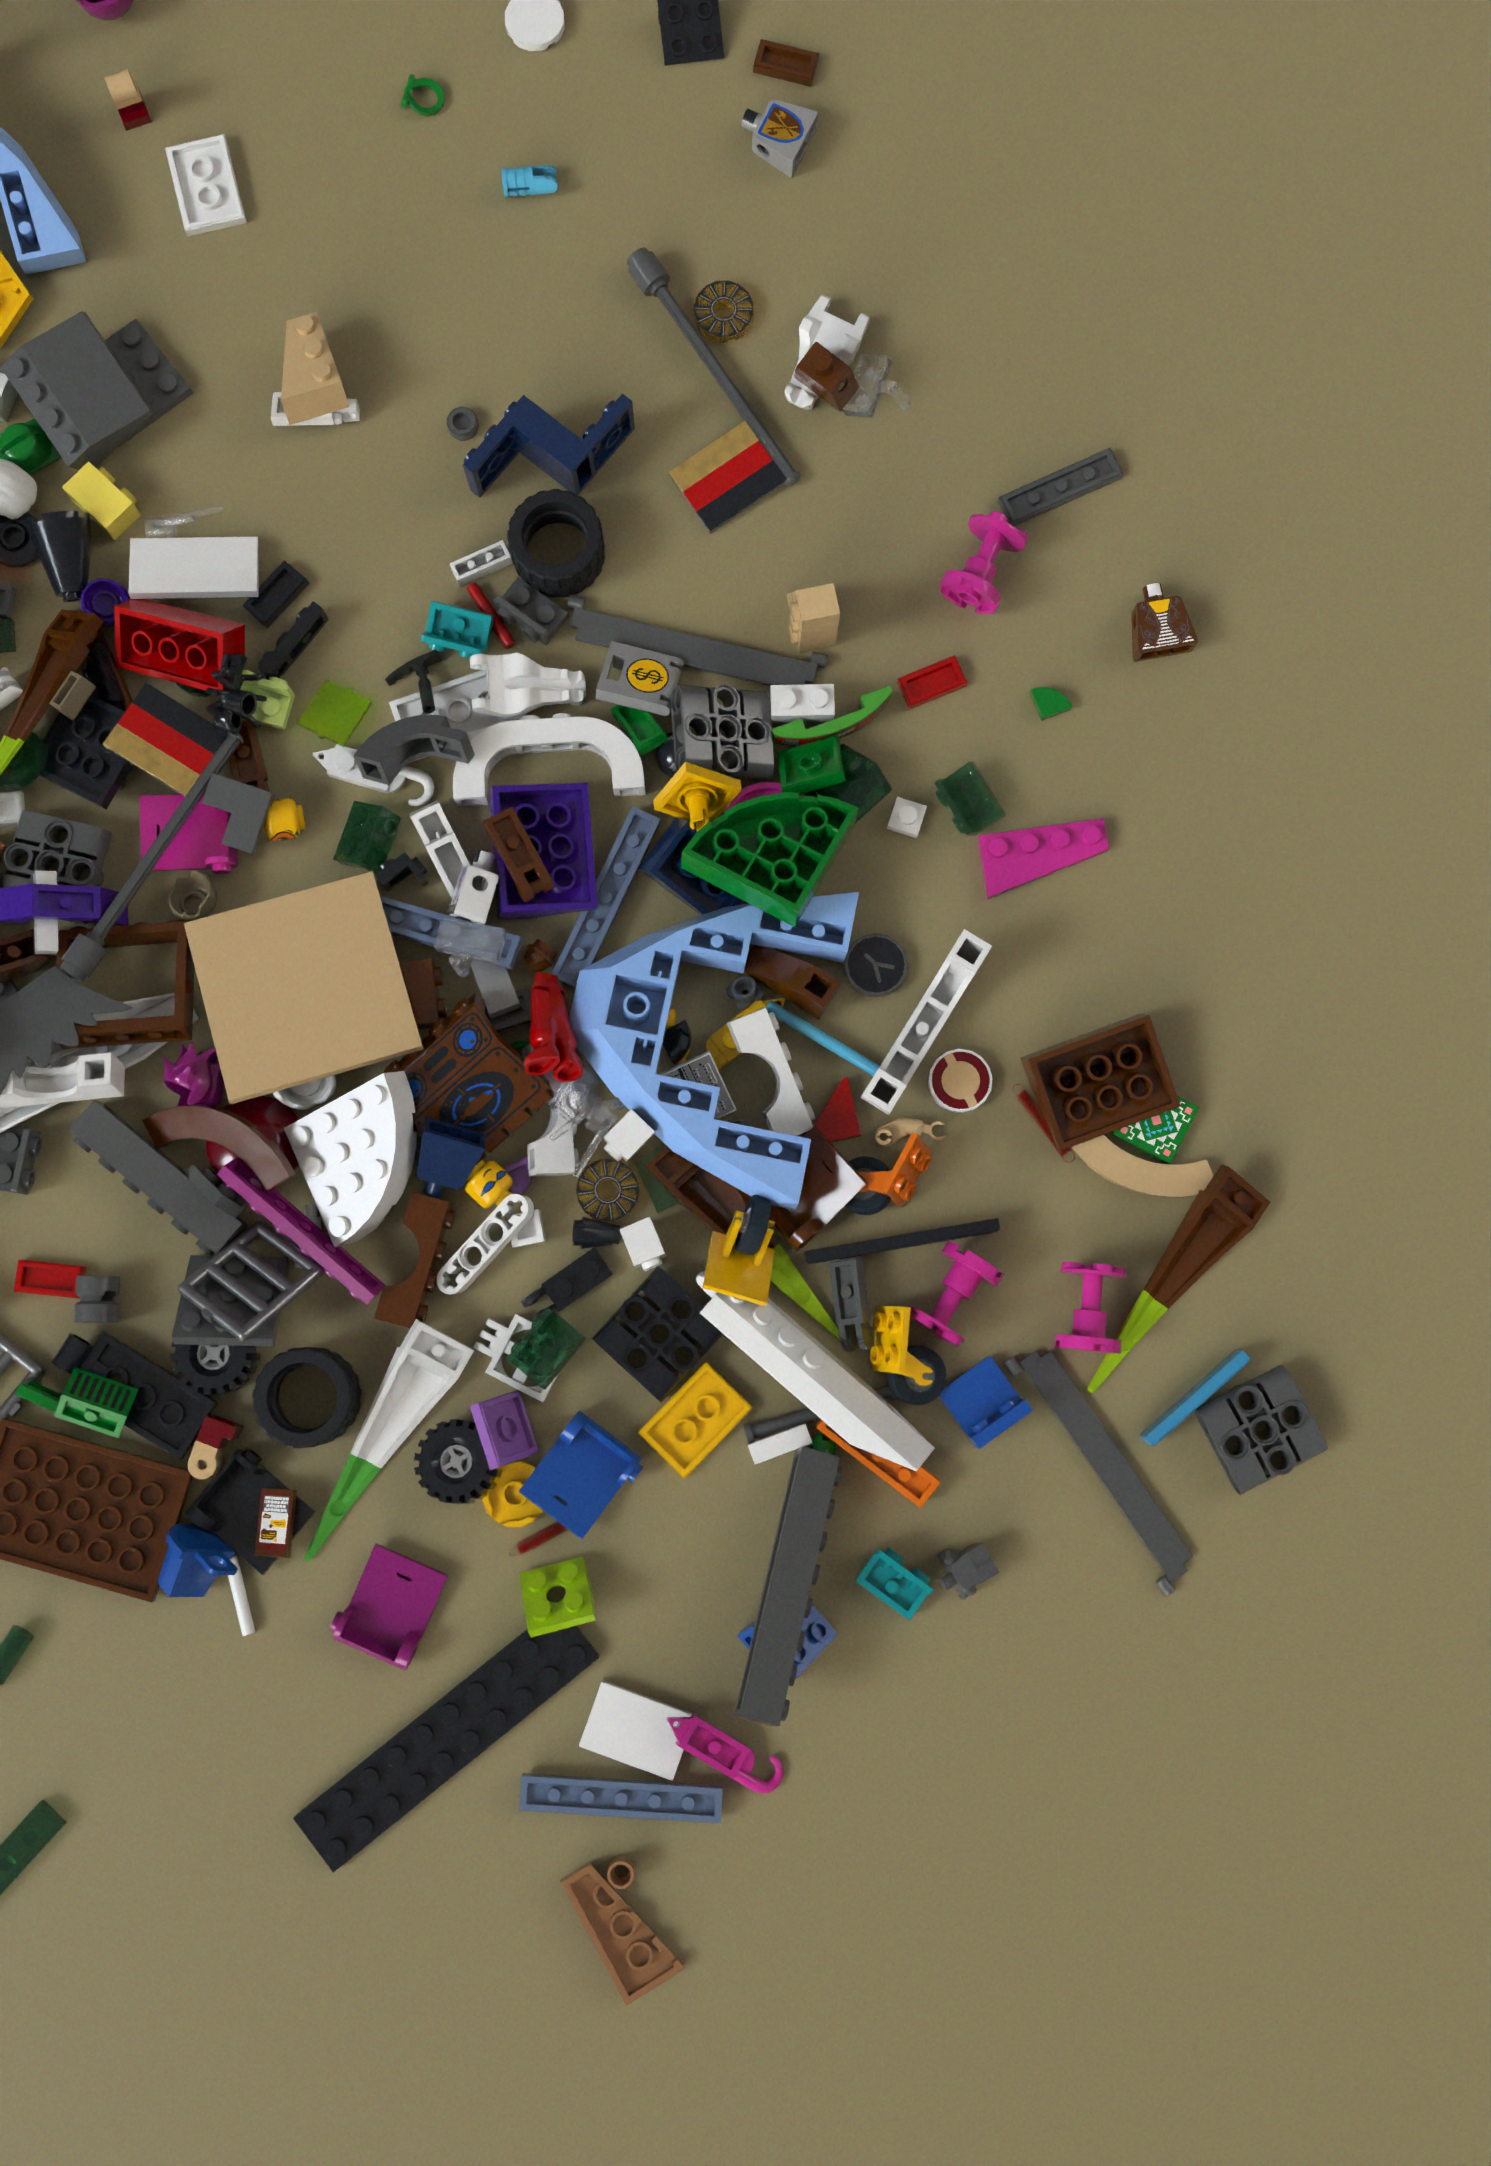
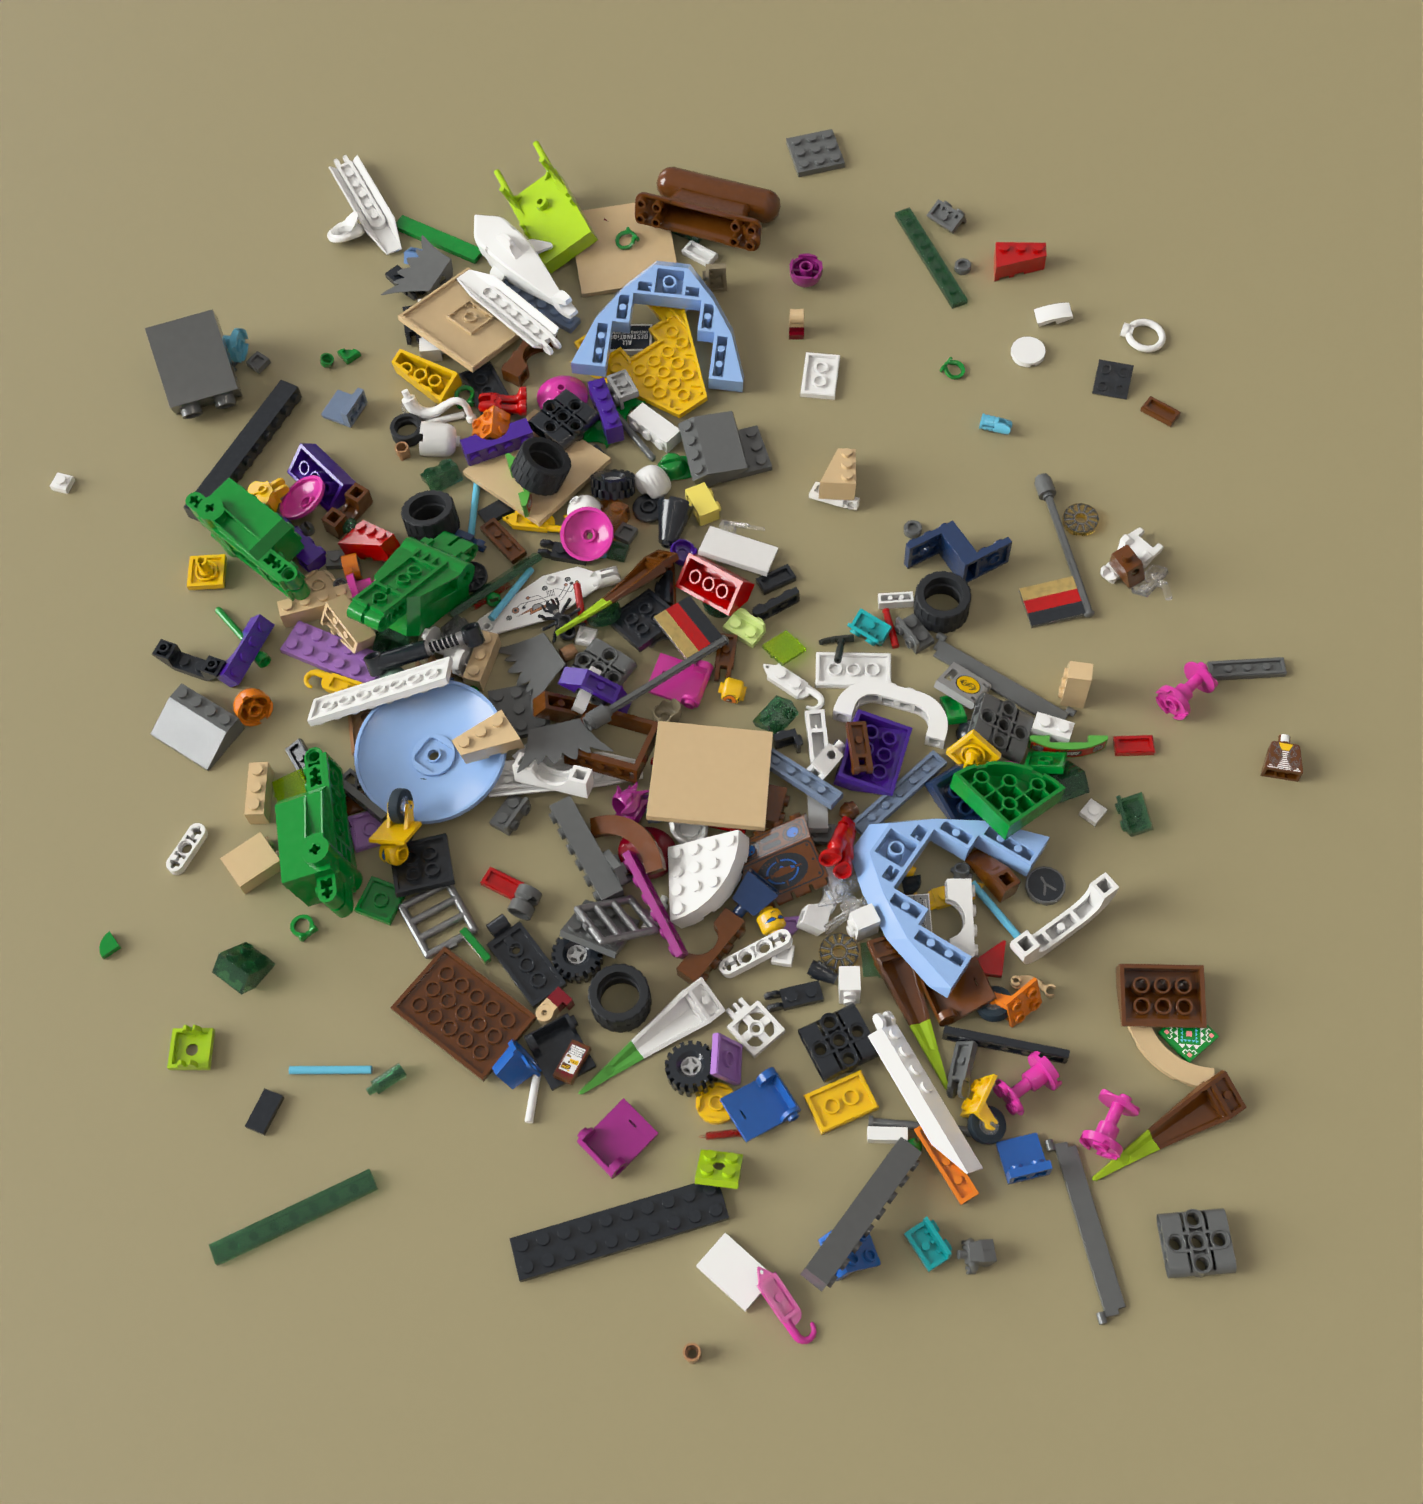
camera: 30 degrees right, 20 degrees down
(72, 695) = (647, 589): dark tan piece -> none
(96, 1402) = (500, 954): green panel -> none
(234, 702) = (734, 619): black animal -> none
(247, 809) = (717, 675): dark grey tile -> none
(409, 739) = (820, 672): dark grey arch -> none
(467, 942) = (812, 784): clear plate -> none
(522, 685) = (894, 666): white animal -> none
(546, 1348) = (768, 1022): clear green bracket -> none
(621, 1798) = (710, 1308): sand blue plate -> none
(622, 1939) = (677, 1402): medium nougat wing -> none
(740, 1259) = (901, 1017): yellow plate -> none
(781, 133) = (1145, 443): light grey torso -> none
(960, 1080) = (1073, 968): tile -> none
(1032, 853) = (1155, 856): dark pink wing -> none
(1042, 1122) = (1114, 1004): red piece -> none
(1049, 702) = (1201, 779): green tile -> none
(1195, 1397) = (1159, 1206): dark azure tile -> none

